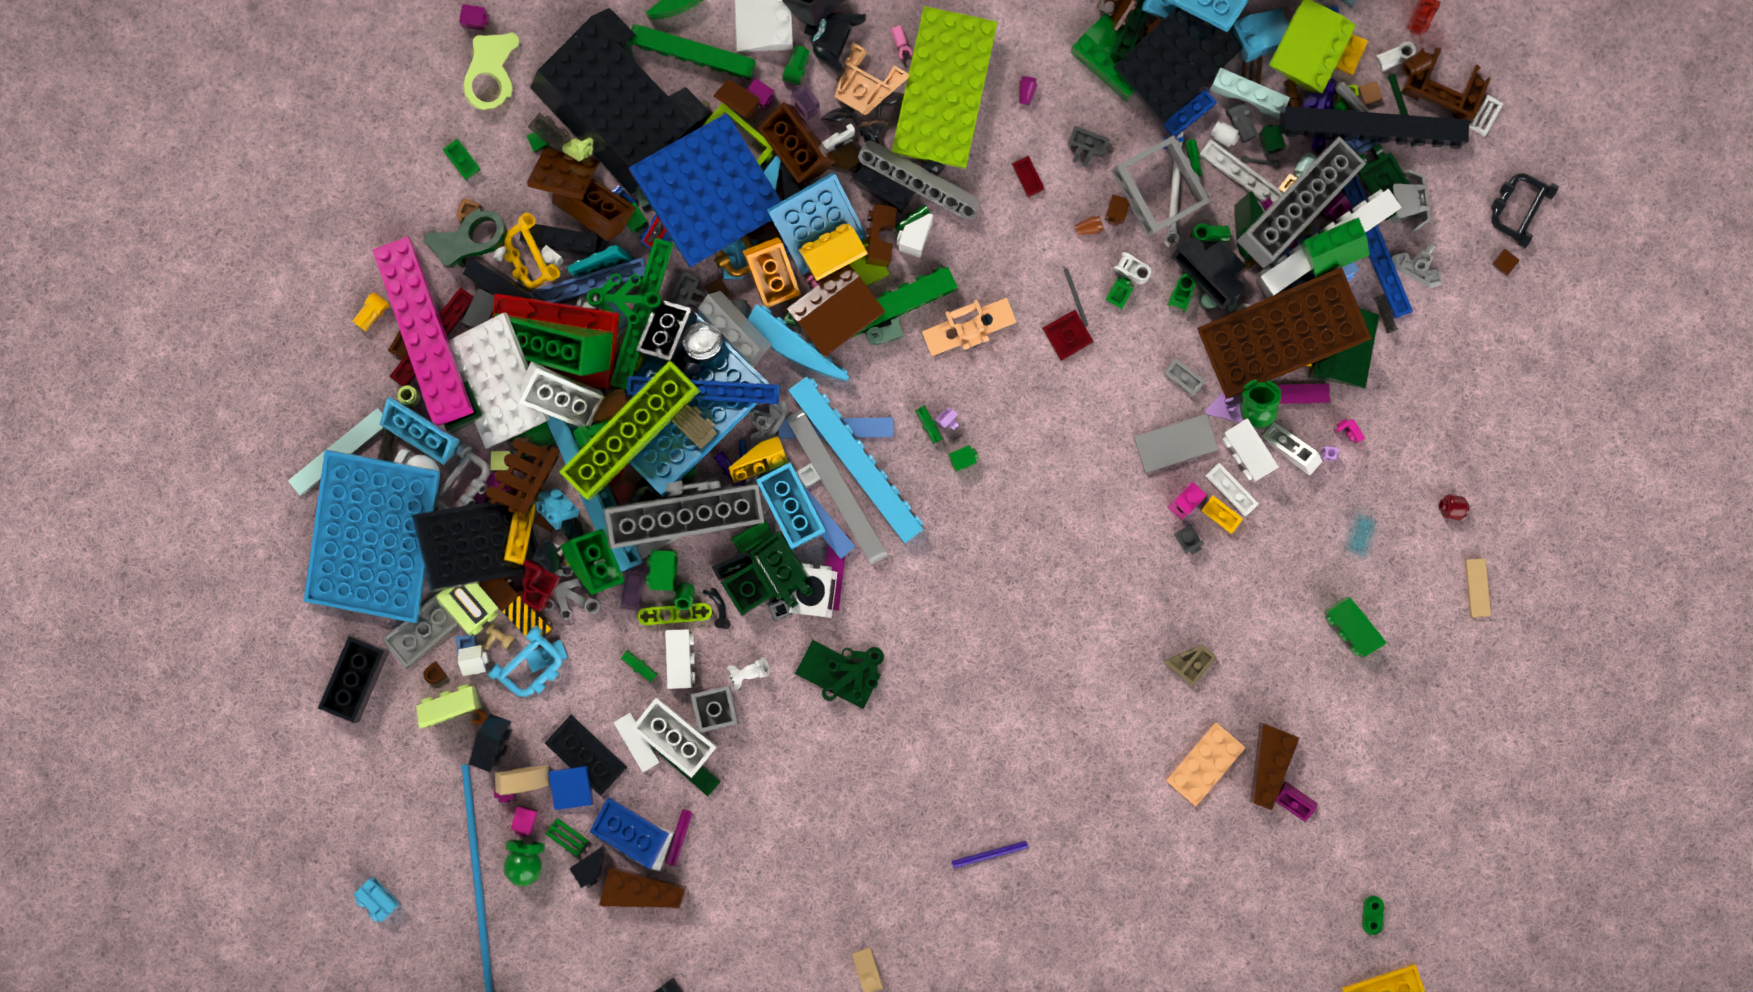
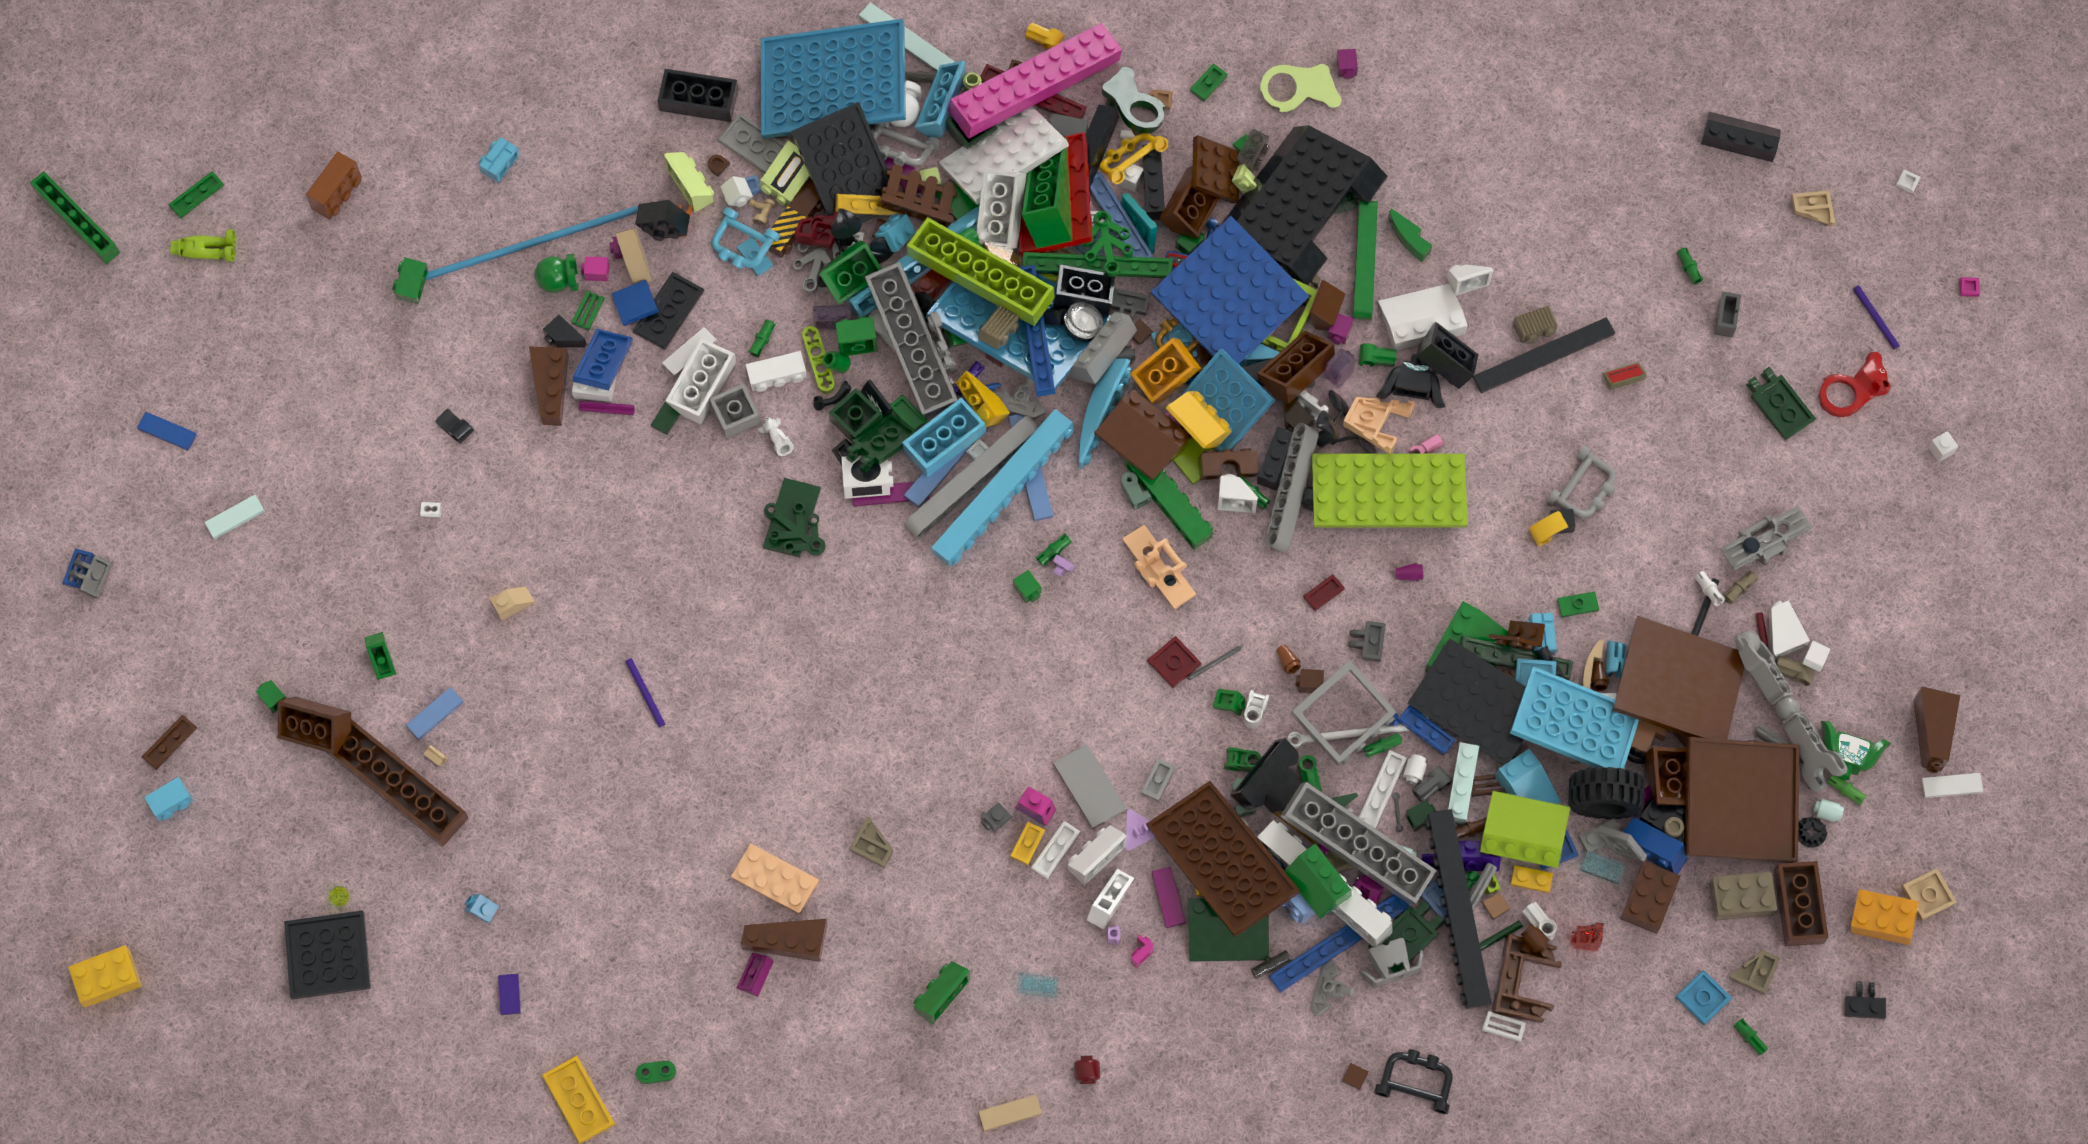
camera: 80 degrees right, 15 degrees down
(1260, 403) = (1146, 850): green tile -> none

